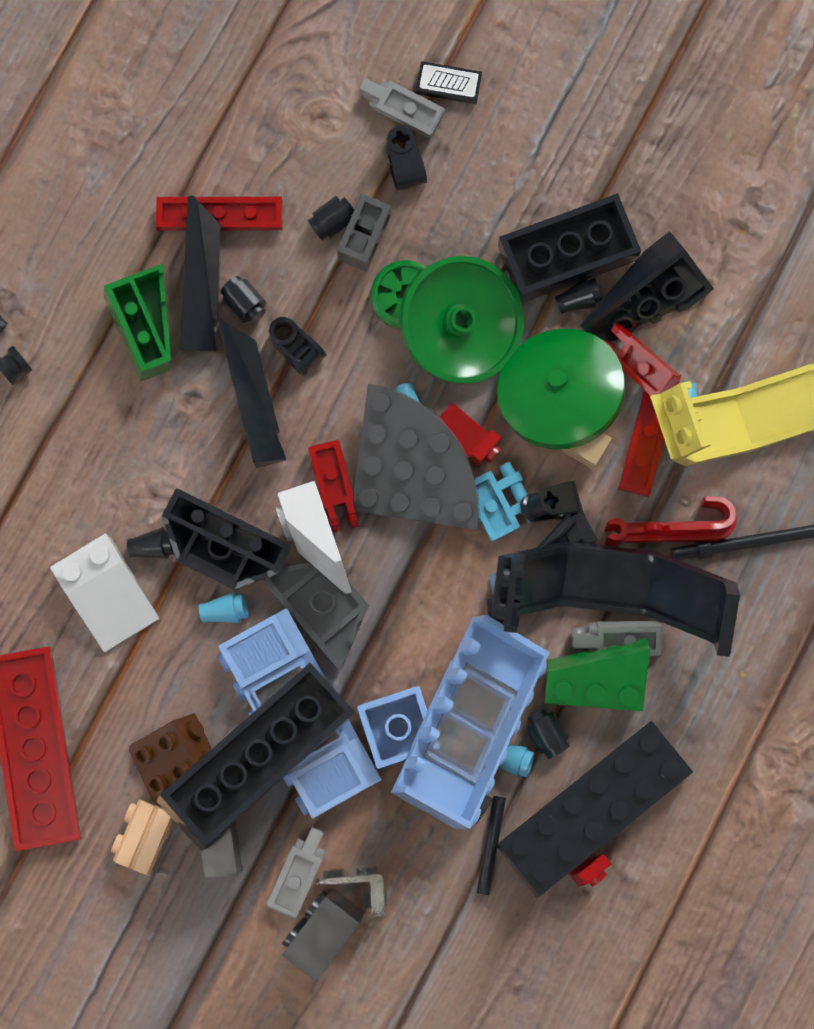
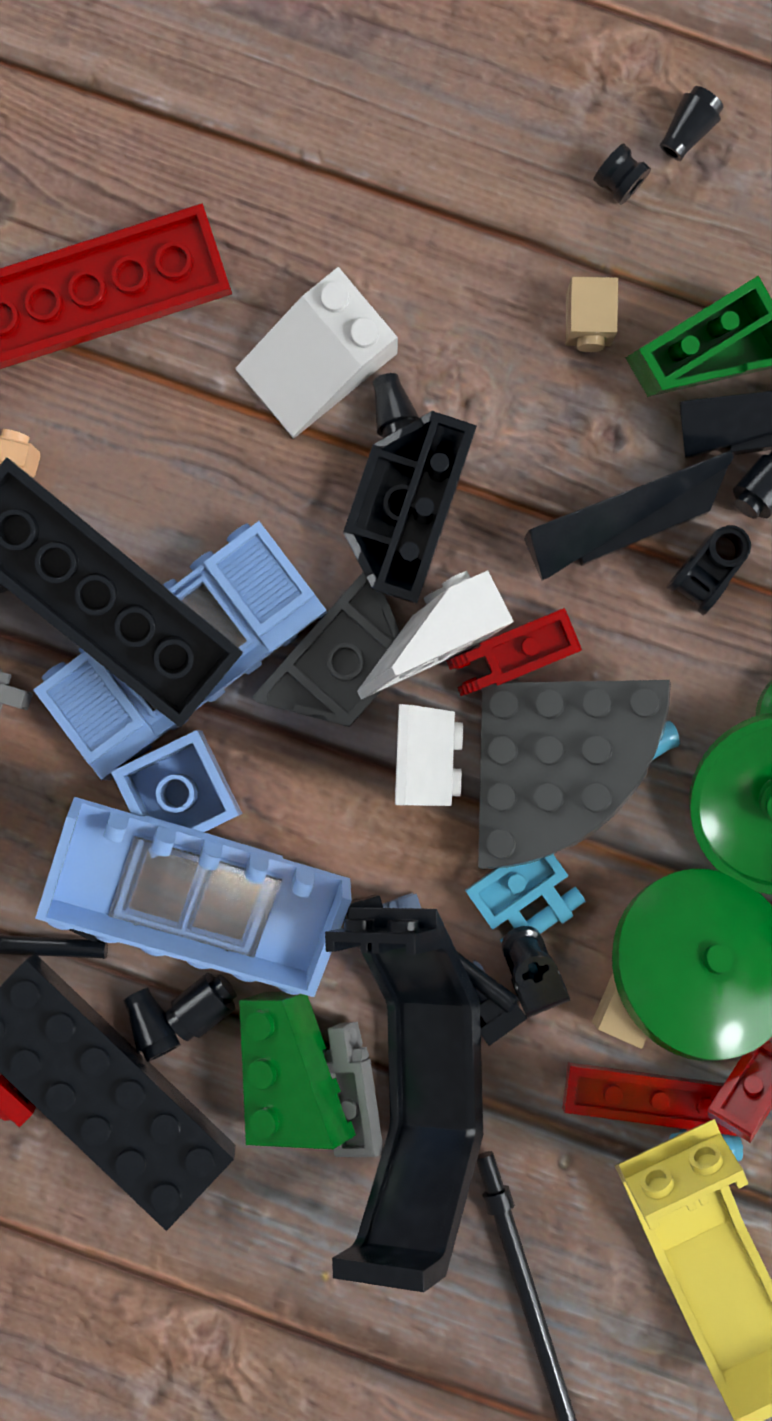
camera: 85 degrees right, 5 degrees up
(107, 400) = (591, 313): none -> tan brick
(169, 753) = (102, 483): reddish brown bracket -> none
(227, 608) = (317, 526): medium azure cone -> none
(396, 555) = (426, 756): none -> white slope
(476, 441) = (612, 844): red bracket -> none
(518, 761) = (157, 971): medium azure cone -> none
(556, 770) = (149, 1026): none -> black cone
(675, 531) = (519, 1162): red piece -> none

